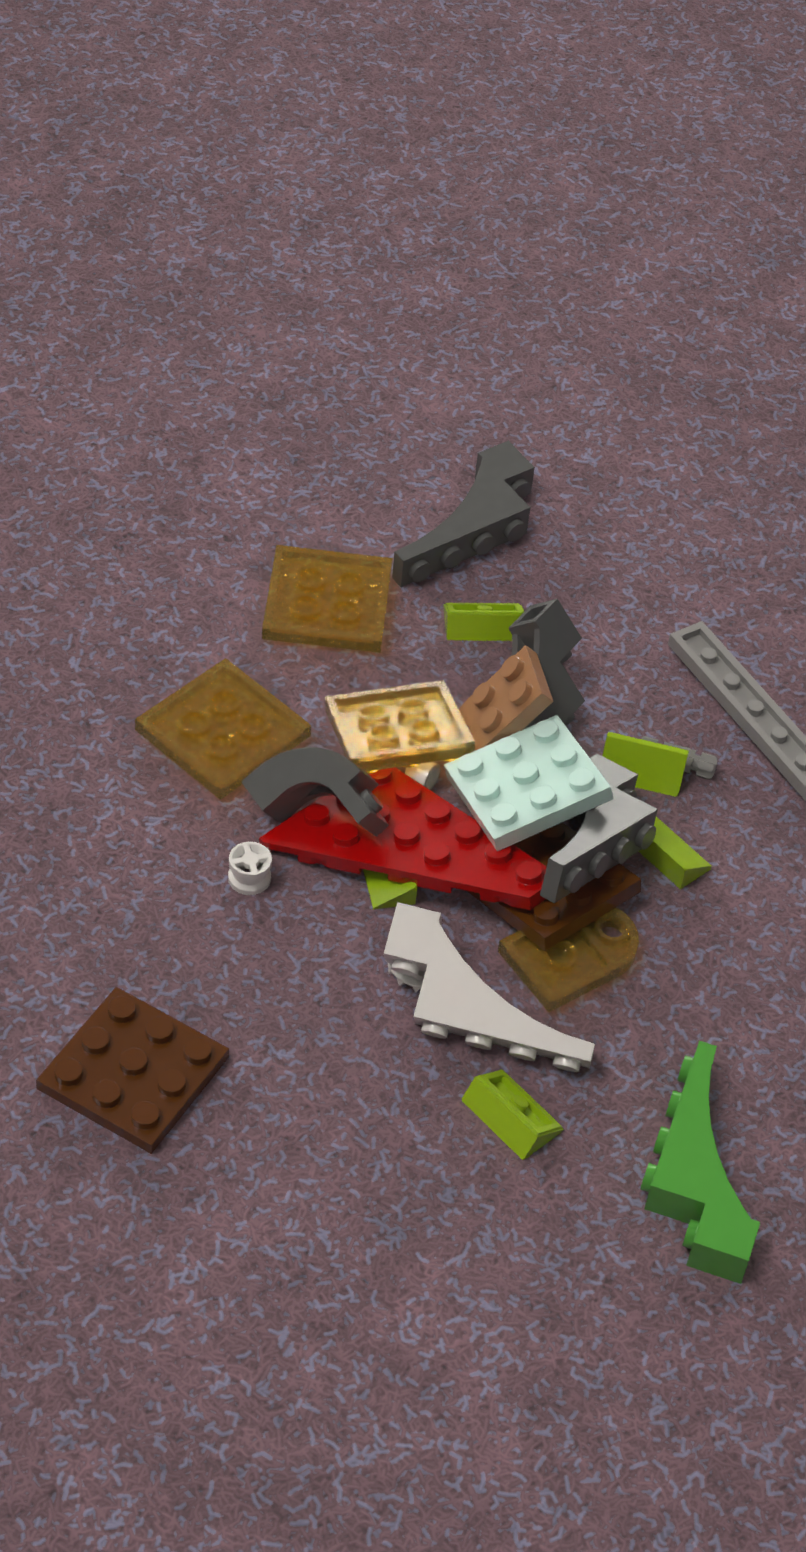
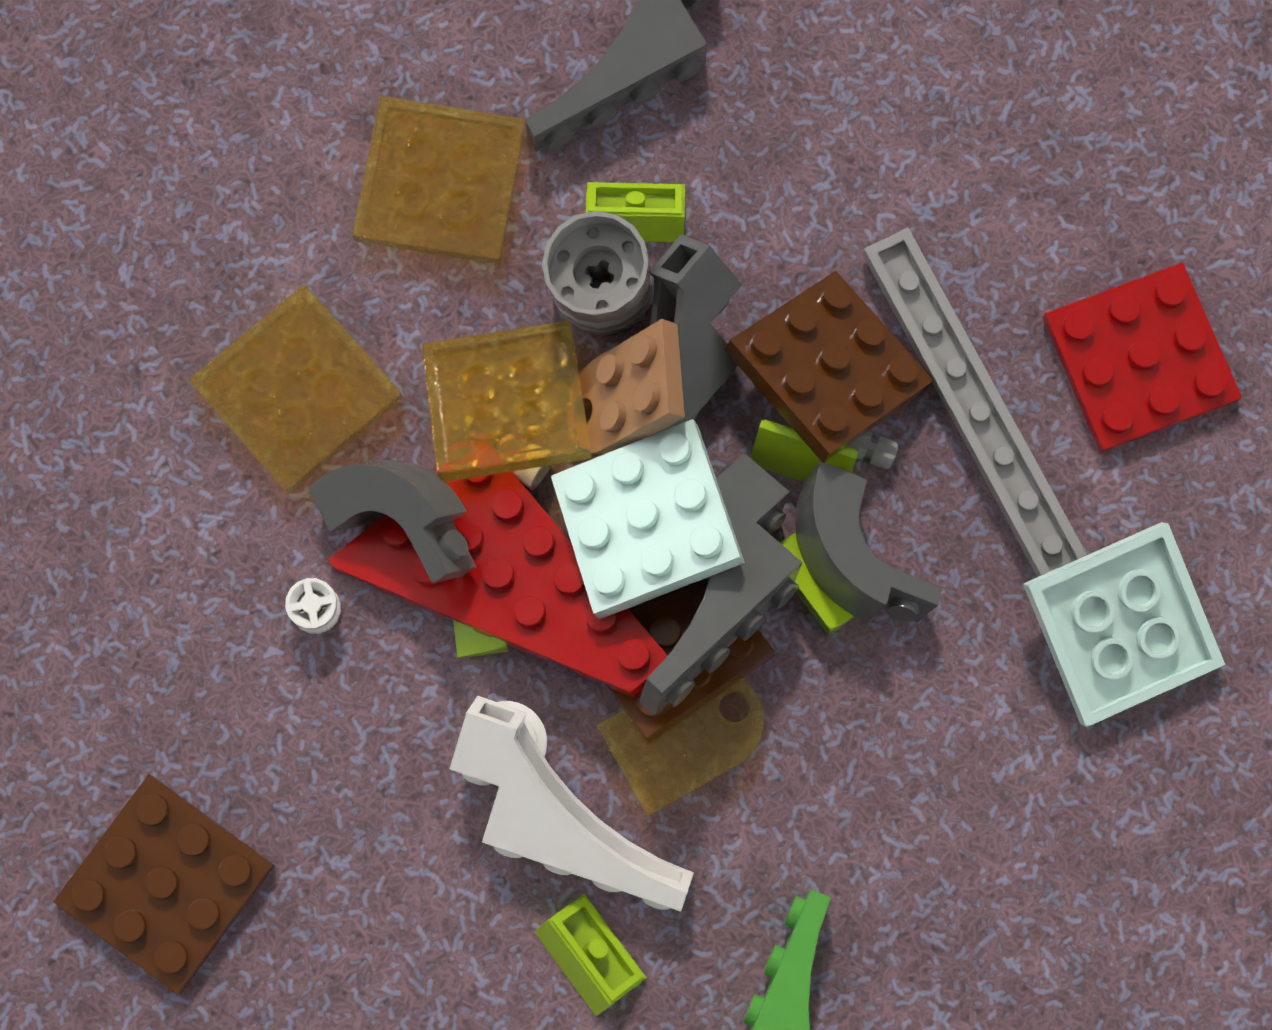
camera: 10 degrees right, 30 degrees up
(464, 639) = (589, 248): none -> light grey wheel
(655, 701) = (828, 366): none -> reddish brown plate
(695, 827) = (842, 560): none -> dark grey arch

